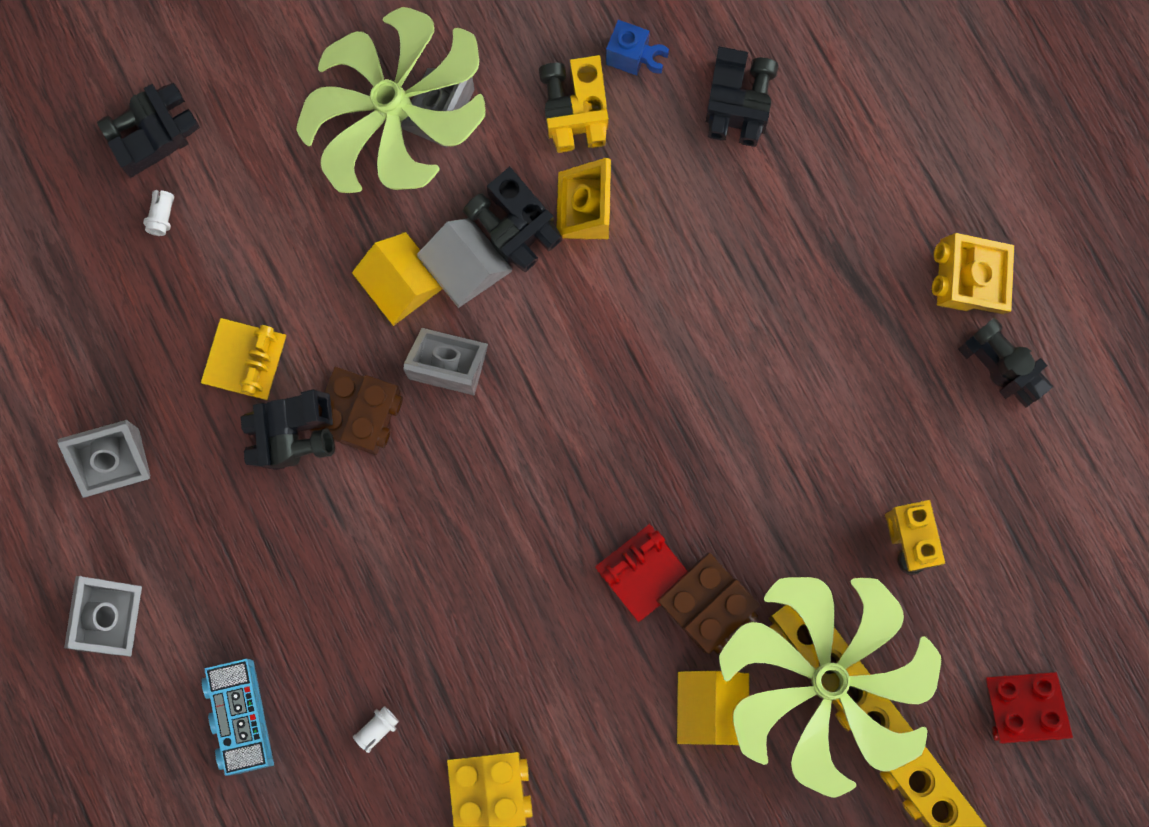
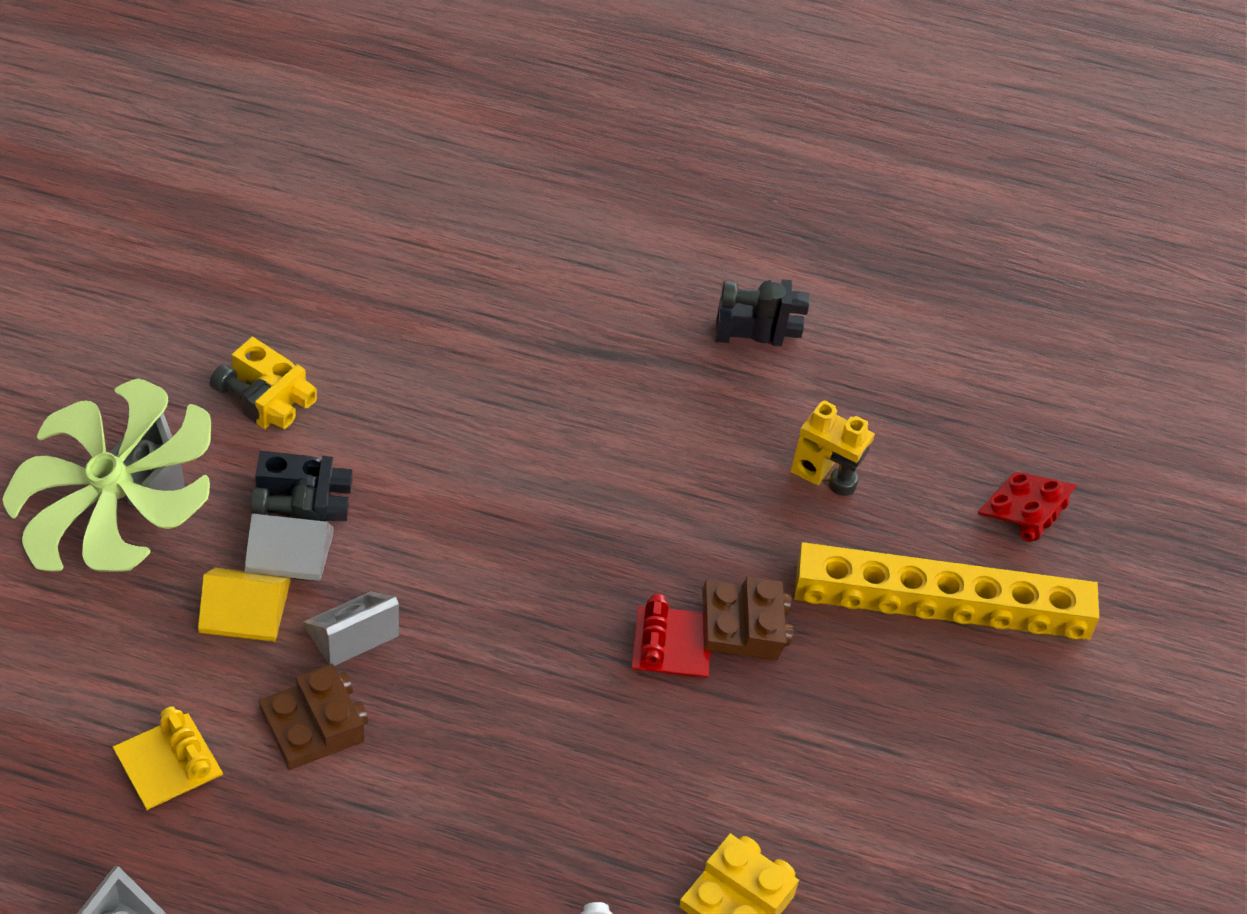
camera: 55 degrees left, 30 degrees down
(278, 428) = (260, 771): black hips -> none
(584, 201) = (347, 433): yellow slope -> none
(631, 48) = (271, 323): blue brick -> none
(708, 707) = (827, 686): yellow slope -> none
(736, 106) = (388, 309): black hips -> none
(879, 623) = (889, 576): yellowish green piece -> none
(974, 274) = (673, 285): yellow plate -> none

